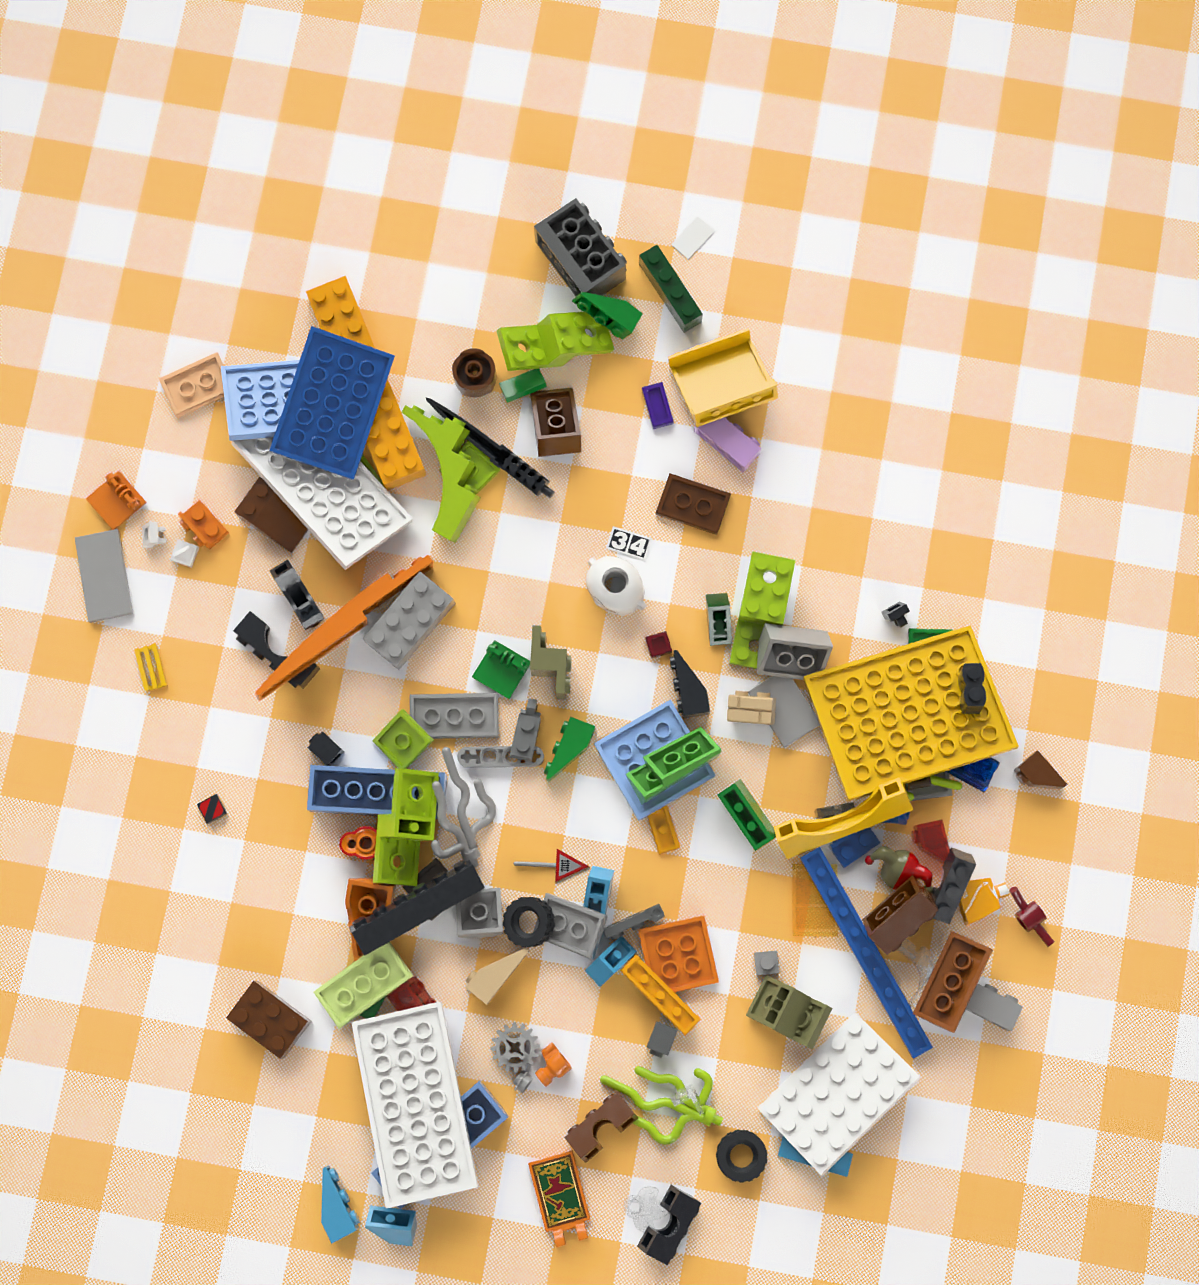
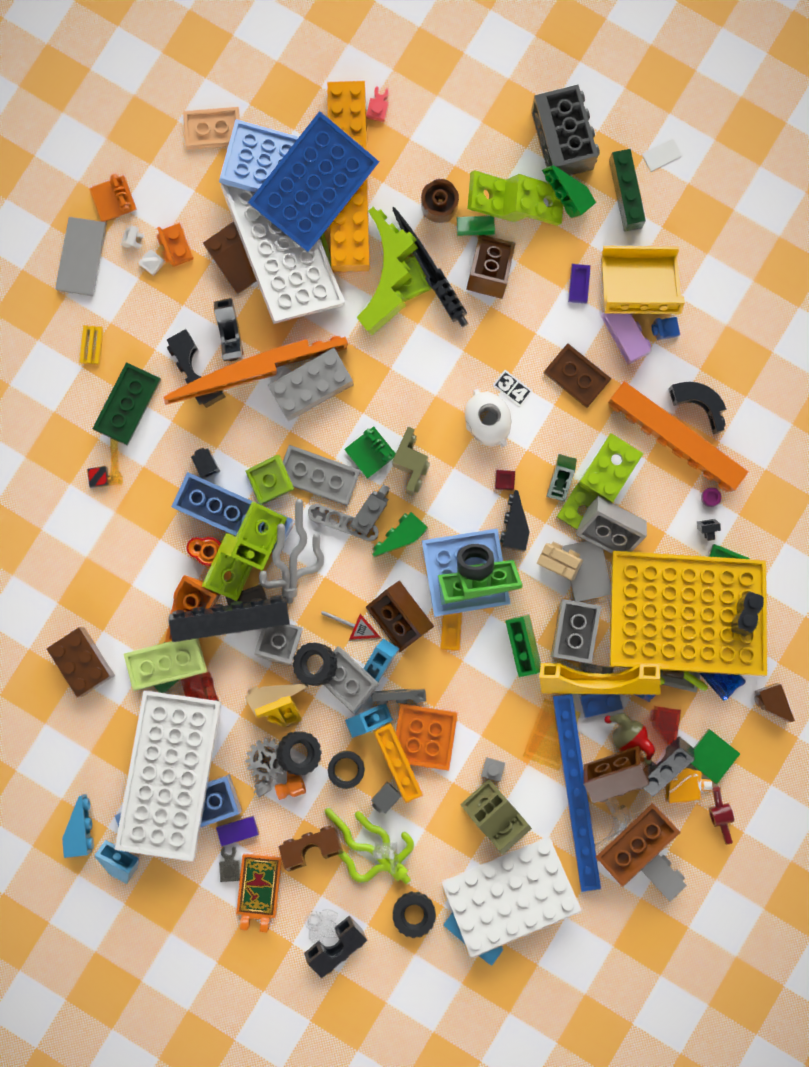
camera: 25 degrees right, 5 degrees up
(214, 717) = (126, 404): none -> dark green tile
(231, 802) = (115, 476): none -> clear yellow piece
(369, 298) = (378, 107): none -> coral plate
(511, 988) = (281, 712): none -> yellow wing
(512, 1140) = (237, 830): none -> dark purple tile
(519, 1185) = (229, 868): none -> clear smoke plate
(564, 1021) = (313, 756): none -> black tyre
(589, 1025) = (346, 784): none -> black tyre
(601, 834) = (399, 616): none -> reddish brown slope
(656, 732) = (476, 572): none -> black tyre
(768, 418) = (665, 328): none -> blue bracket
(797, 777) = (576, 631): none -> light grey brick
(825, 529) = (678, 437): none -> orange brick
(835, 476) = (704, 397): none -> black arch
(886, 580) = (711, 497): none -> magenta tile
(997, 857) = (713, 756): none -> green tile

